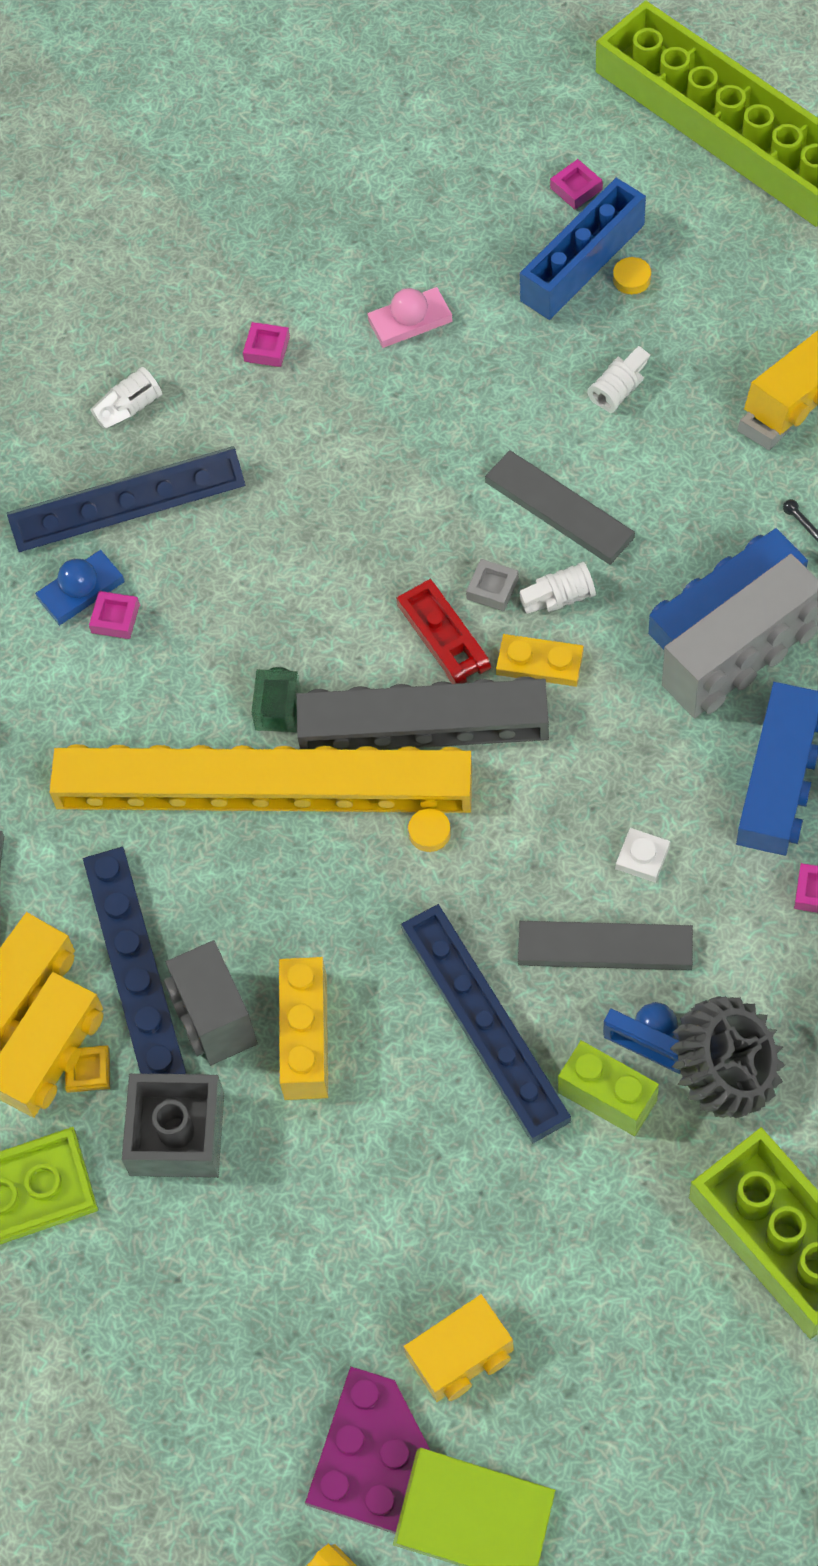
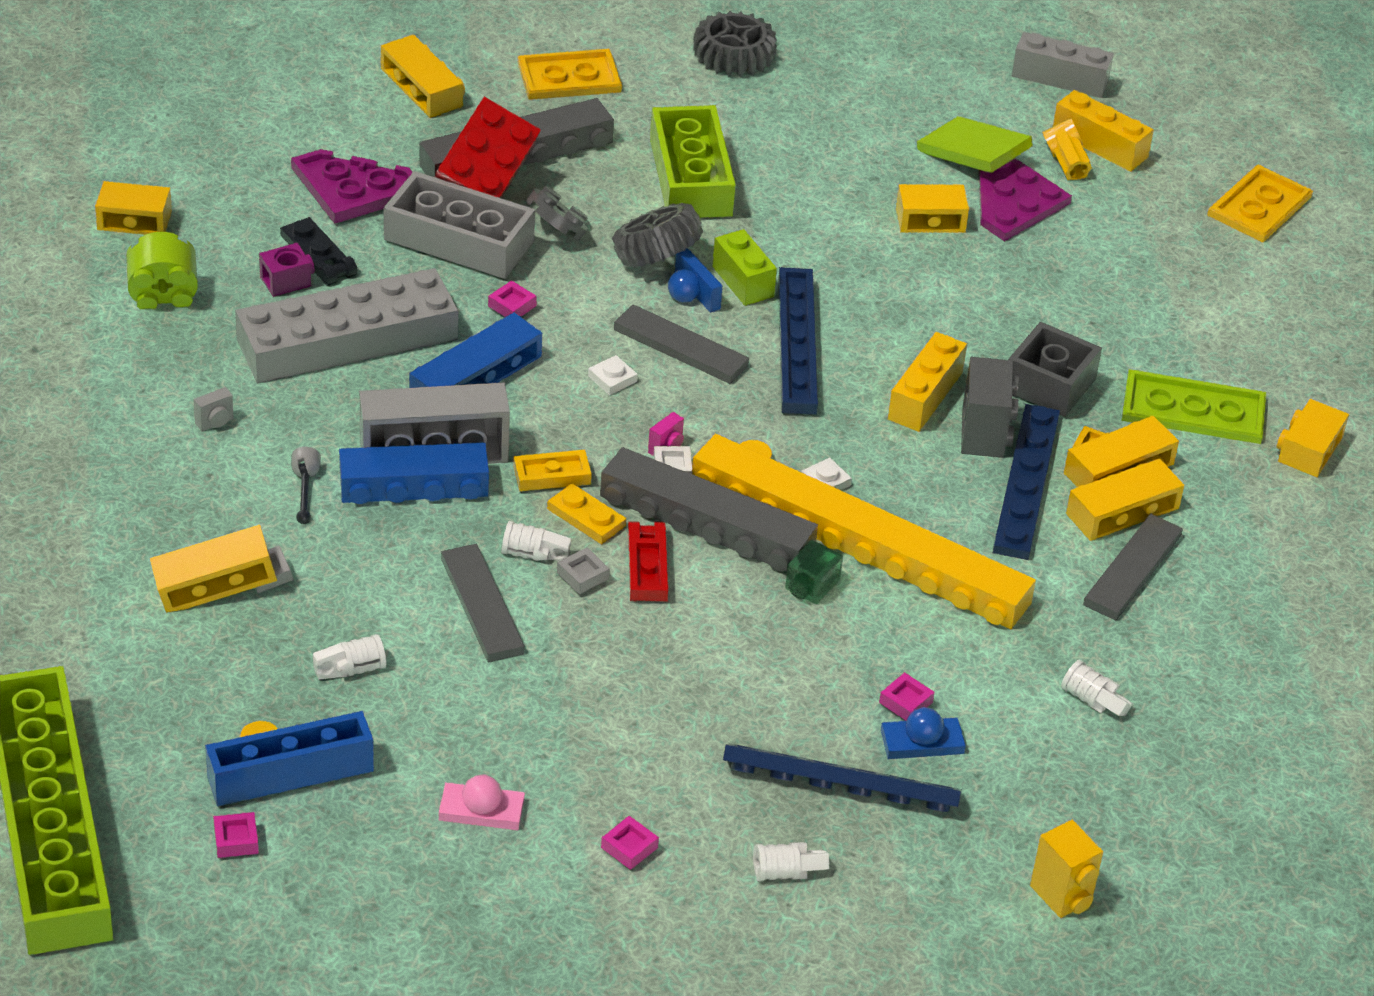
camera: 160 degrees left, 20 degrees down
(339, 843) = (829, 473): none -> white plate
(498, 763) = (674, 456): none -> white plate
(524, 787) = (666, 432): none -> dark pink plate
(606, 685) = (552, 470): none -> yellow plate

